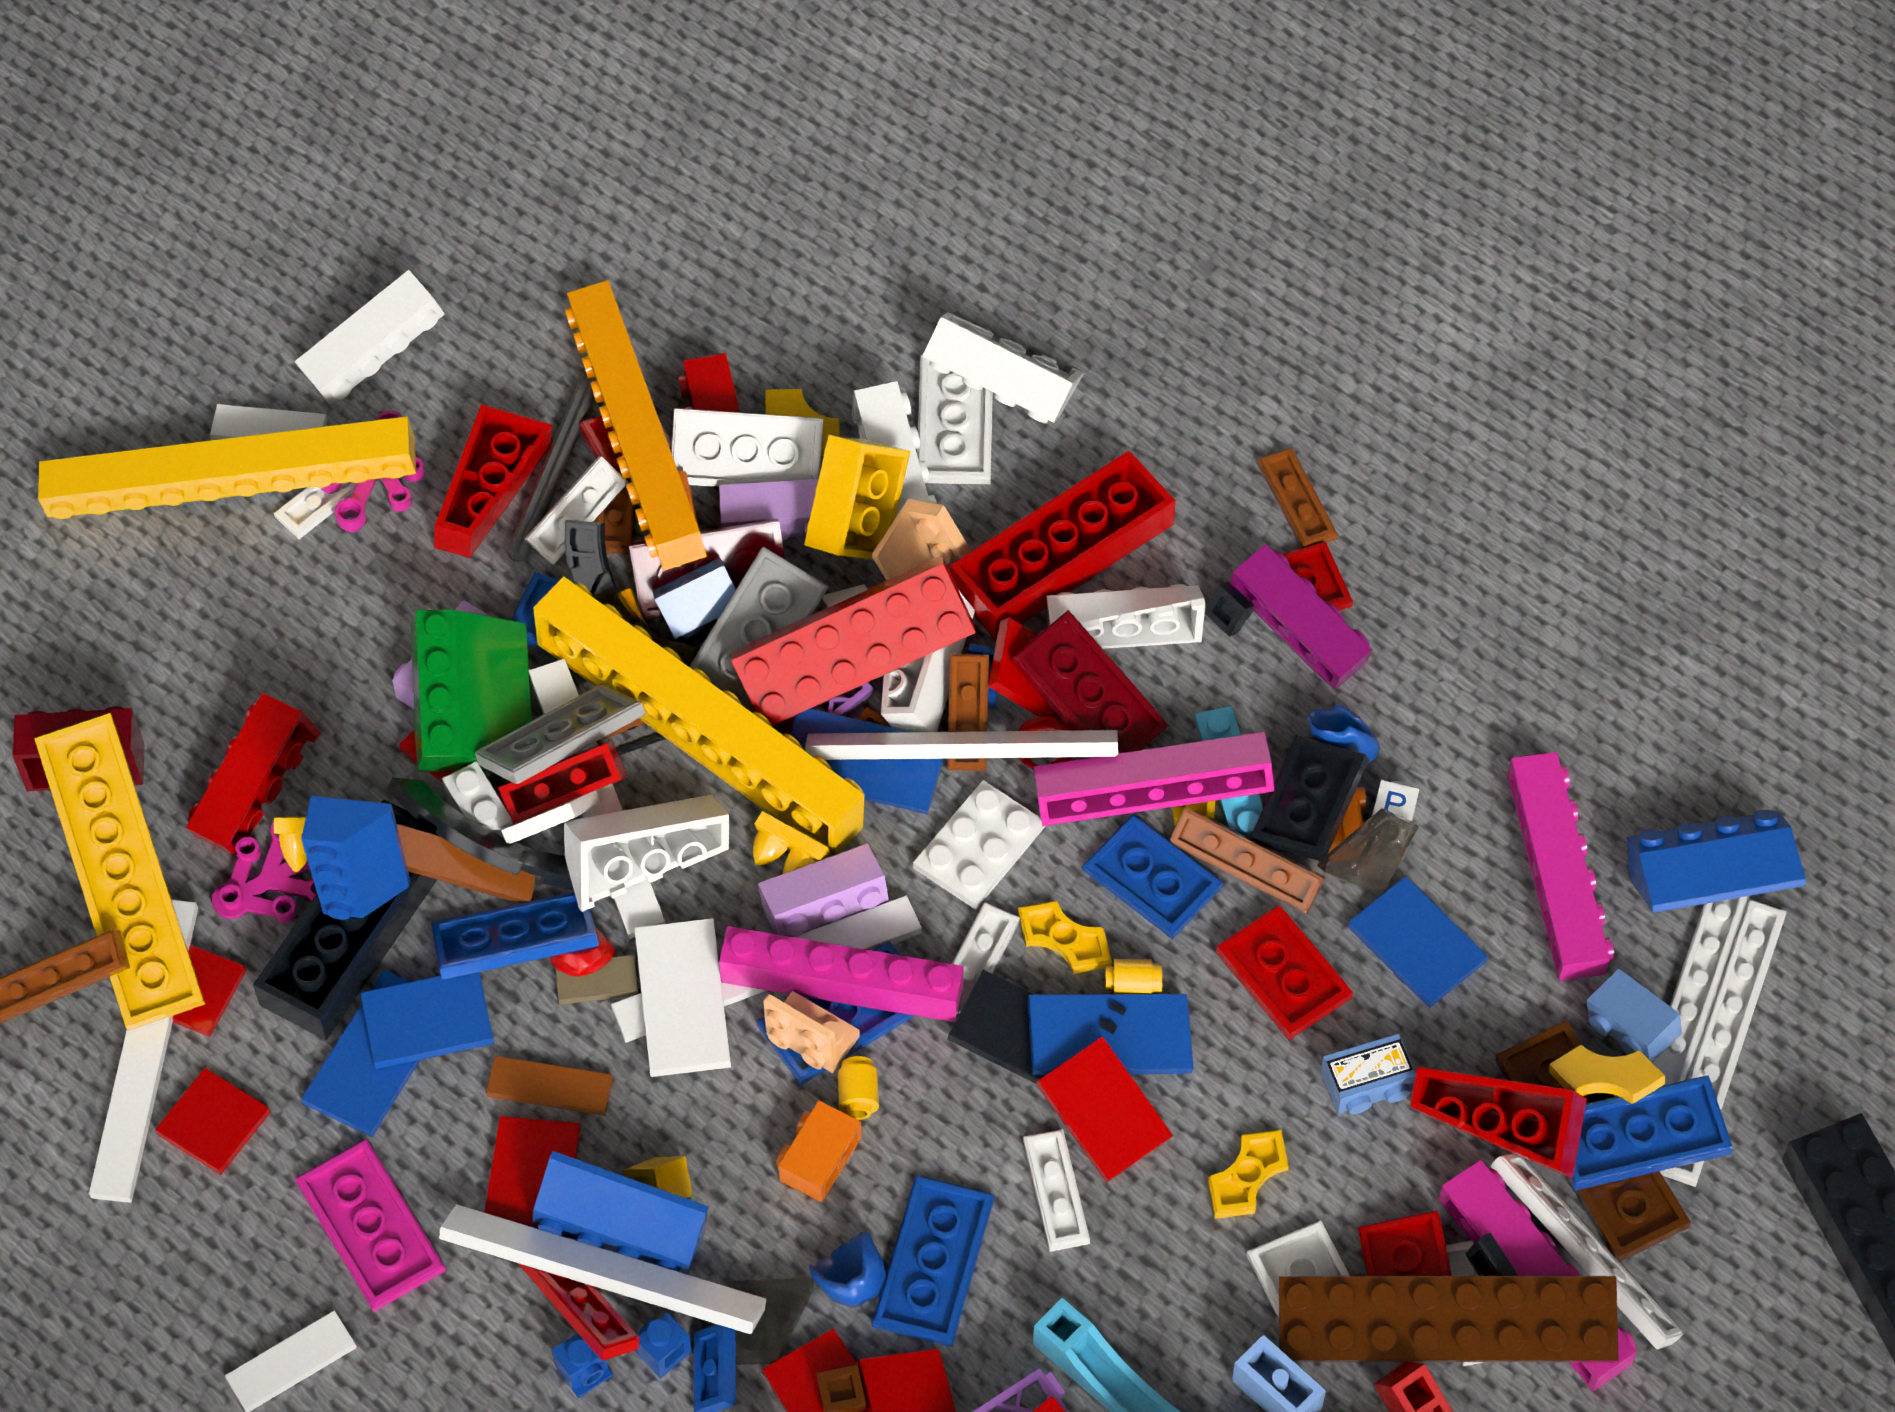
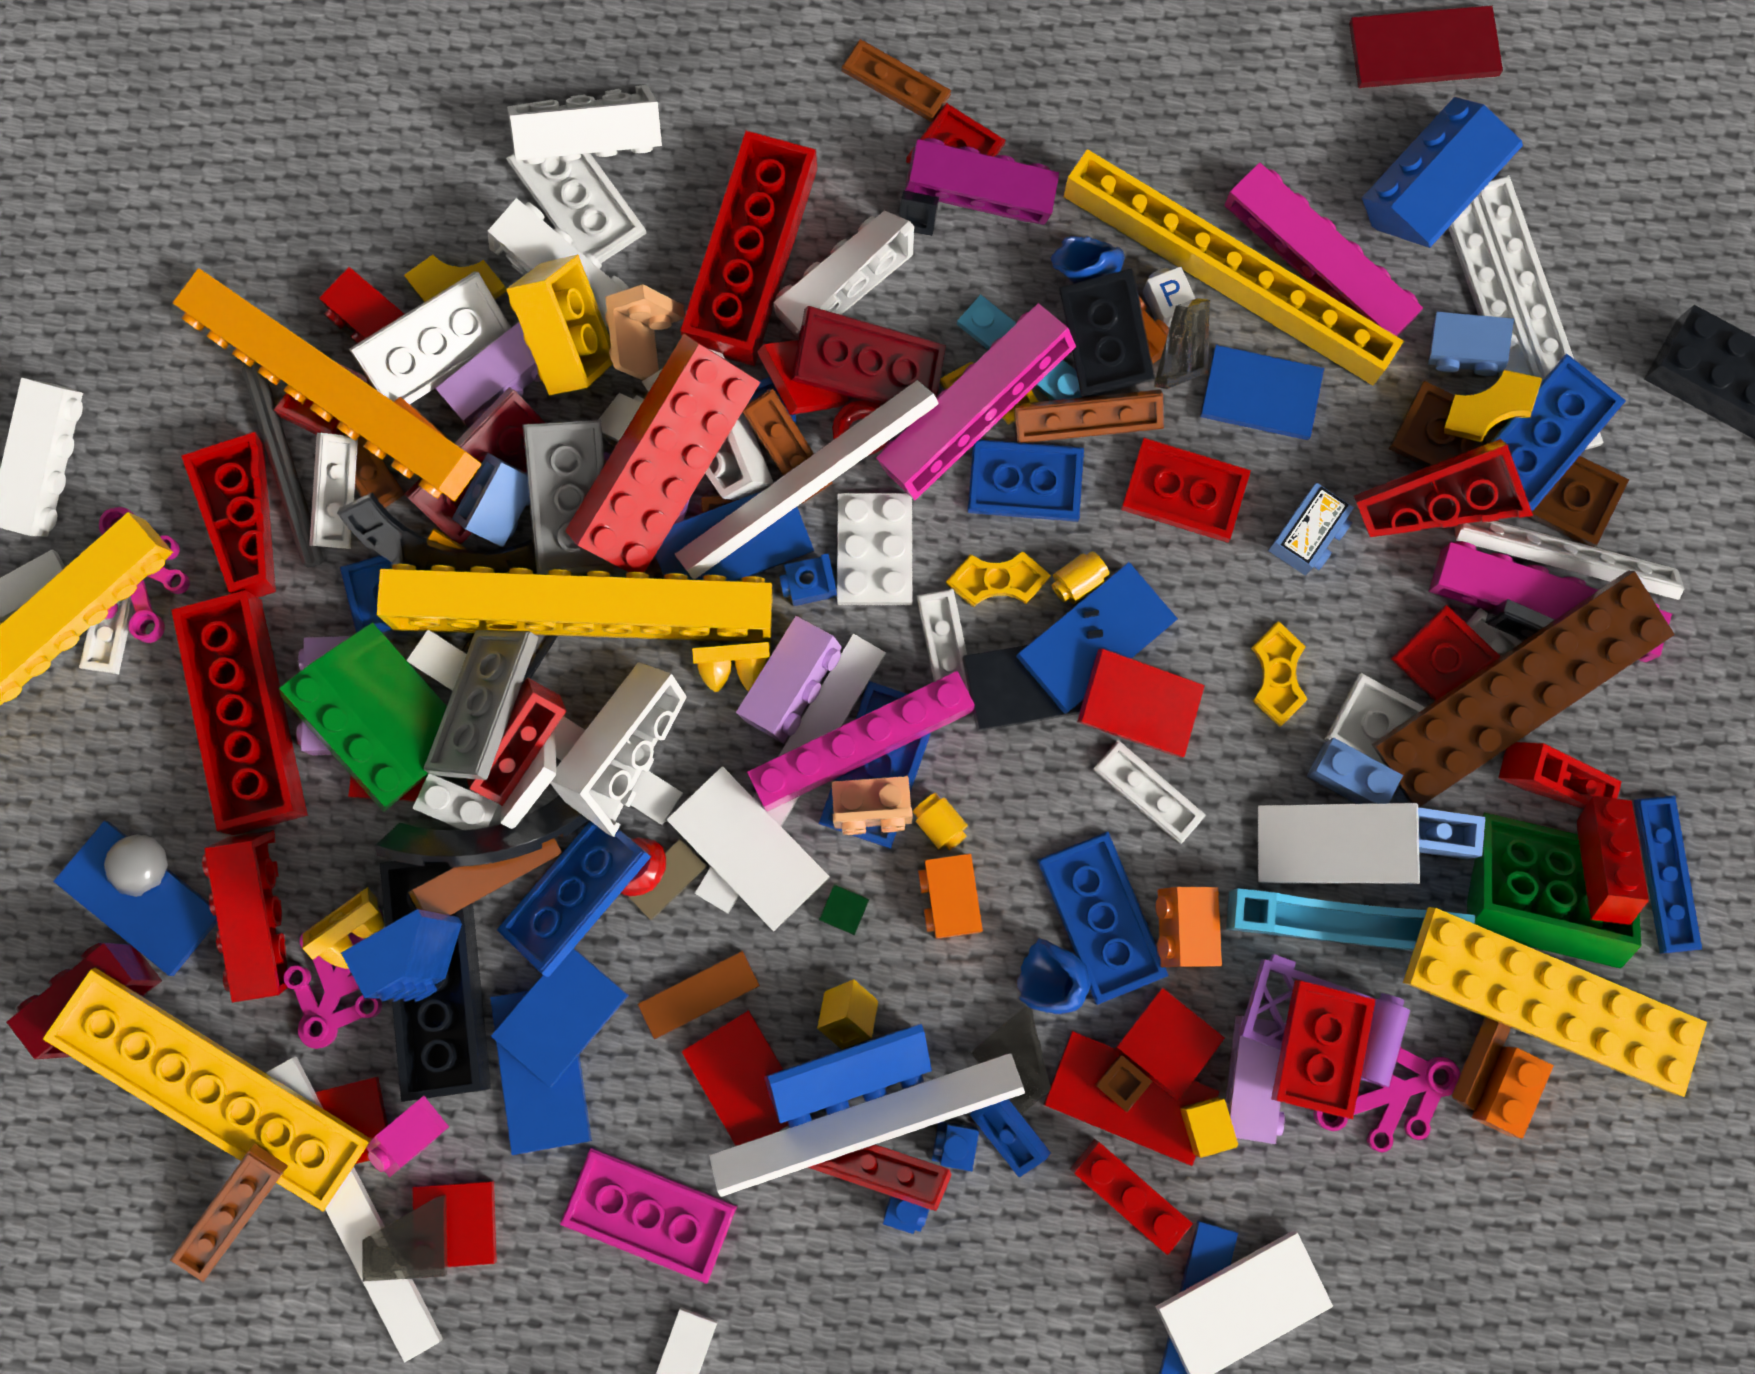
camera: 35 degrees left, 20 degrees up
(167, 1104) = (409, 1246): none -> clear smoke wing
(176, 710) = (160, 924): none -> blue tile
(196, 680) = (135, 864): none -> light grey hair
(234, 1018) = (406, 1137): none -> dark pink slope
(367, 623) = (239, 713): none -> red brick
(722, 1103) = (844, 910): none -> dark green tile
(905, 840) = (821, 587): none -> blue brick
(998, 1311) = (1189, 927): none -> orange brick
(1182, 1330) = (1339, 843): none -> white tile
(1243, 1292) = (1353, 774): none -> medium blue brick
(1466, 823) = (1231, 267): none -> yellow brick
(1795, 762) = (1425, 46): none -> dark red tile

